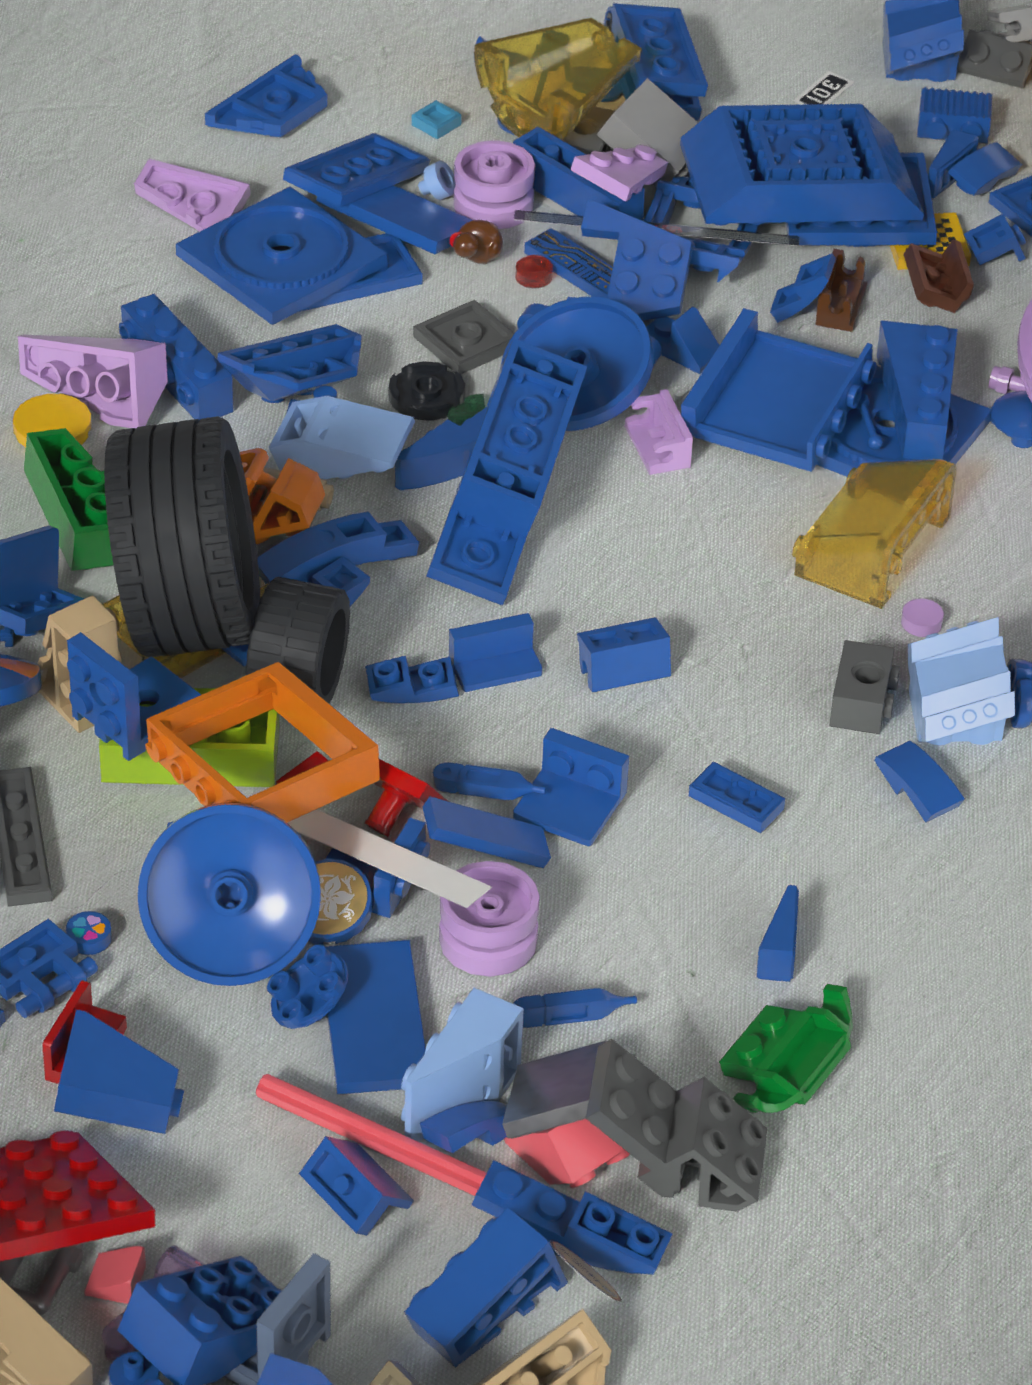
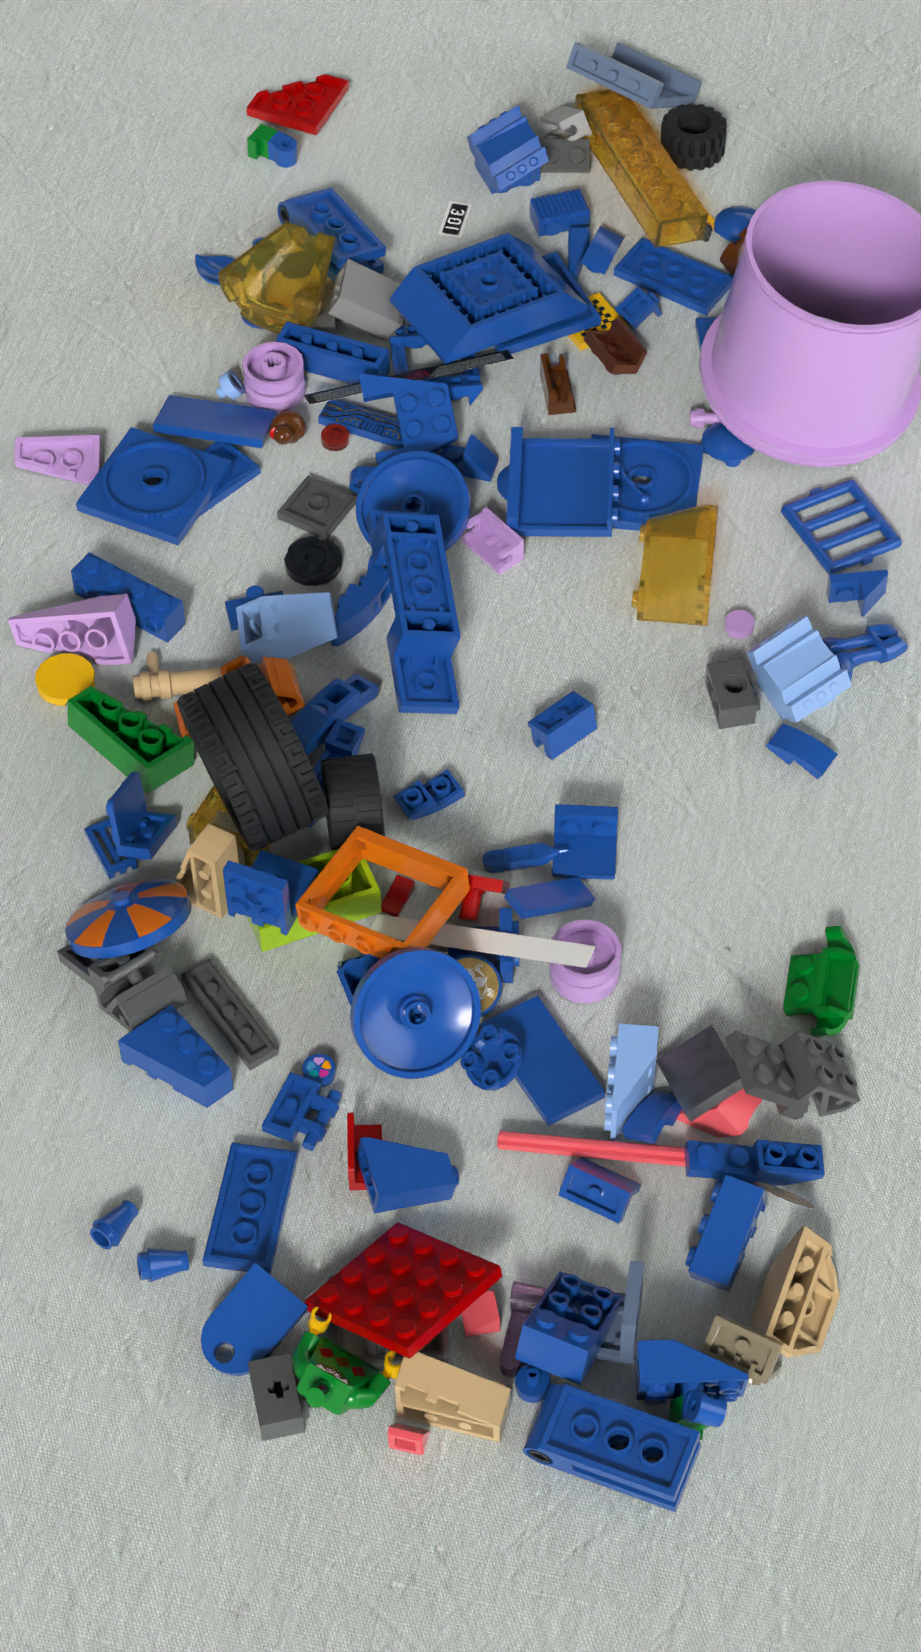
camera: 20 degrees left, 10 degrees up
(271, 102) = (74, 357): blue wing -> none
(295, 362) = (223, 573): blue wedge -> none
(356, 169) = (169, 396): blue tile -> none
(436, 119) = (197, 332): dark azure tile -> none
(472, 405) = (352, 569): clear green tile -> none
(494, 652) = (474, 755): blue panel -> none
(570, 1006) = (665, 1004): blue piece -> none
(621, 169) = (367, 341): lavender wing -> none
(736, 797) = (691, 807): blue plate -> none
(778, 946) = (779, 906): blue slope -> none
(808, 285) = (539, 389): blue slope -> none
(918, 378) = (656, 445): blue wedge -> none

